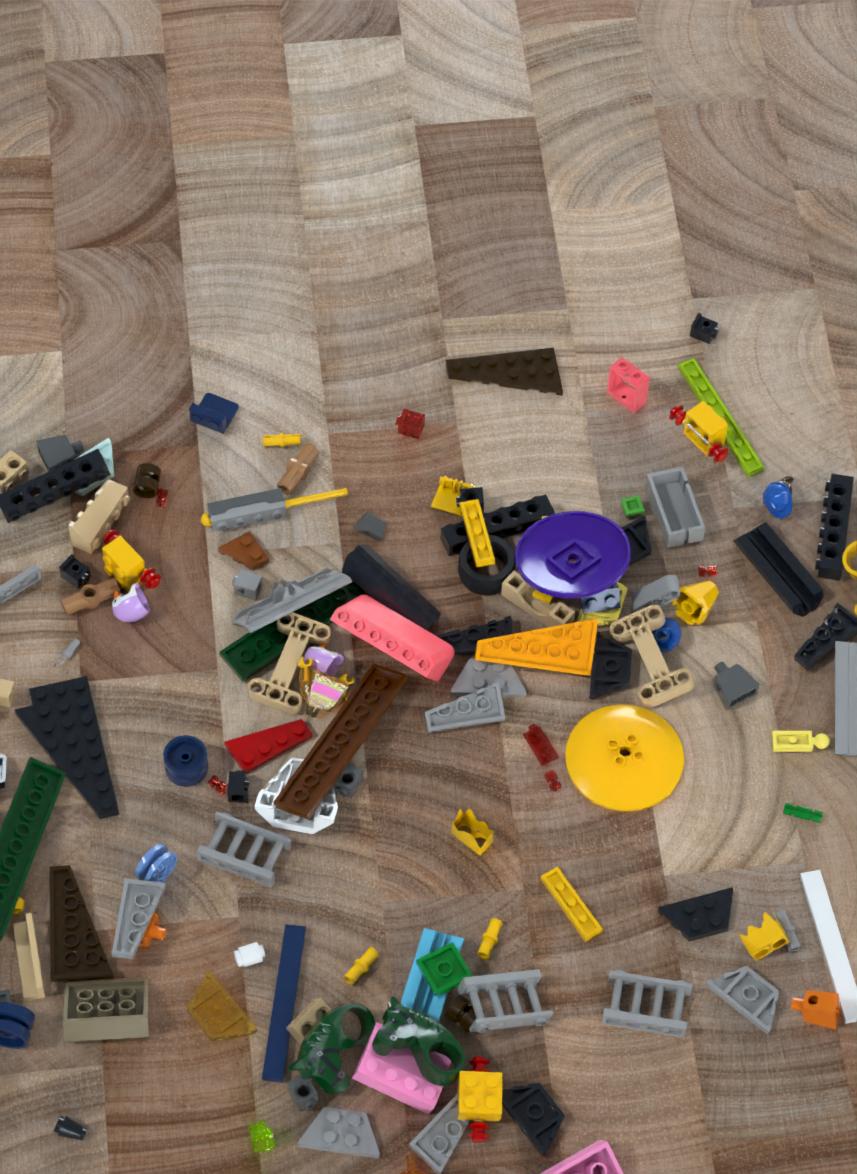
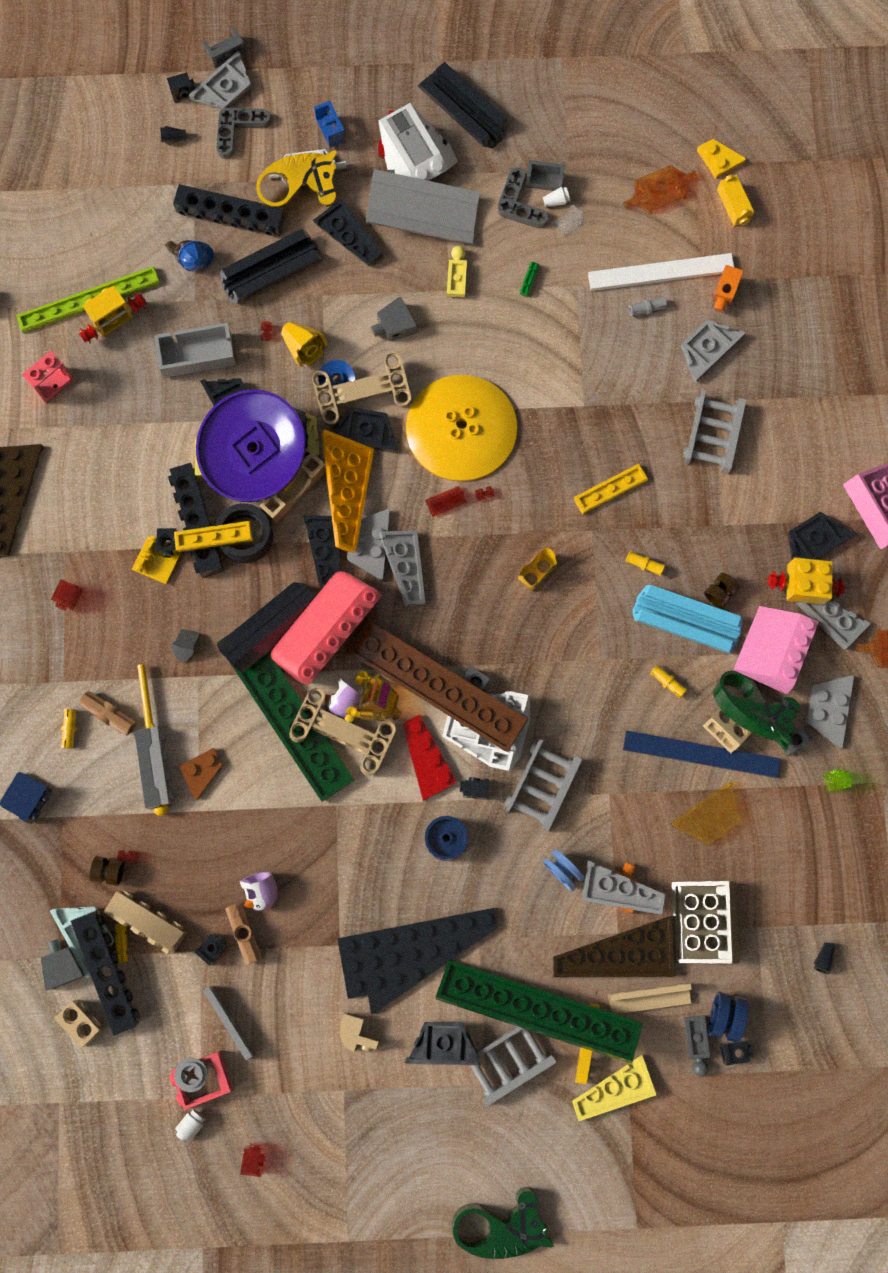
camera: 85 degrees left, 20 degrees up
(67, 653) = (307, 959): light grey piece -> none
(80, 500) = (121, 942): none -> yellow axle
(125, 563) = (211, 895): yellow brick -> none
(221, 786) = (472, 805): clear red piece -> none
(247, 584) = (243, 771): light grey brick -> none
(249, 954) = (654, 784): white brick -> none
(290, 598) = (273, 725): light grey hinge -> none
(422, 1034) = (751, 629): dark green animal -> none
(443, 969) = (685, 603): green plate -> none
(508, 982) = (701, 563): light grey fence -> none
(632, 506) = (187, 391): bright green plate -> none
(656, 593) = (296, 377): light grey beam -> none
(700, 915) = (626, 377): black wing -> none
(765, 939) = (657, 324): yellow piece -> none

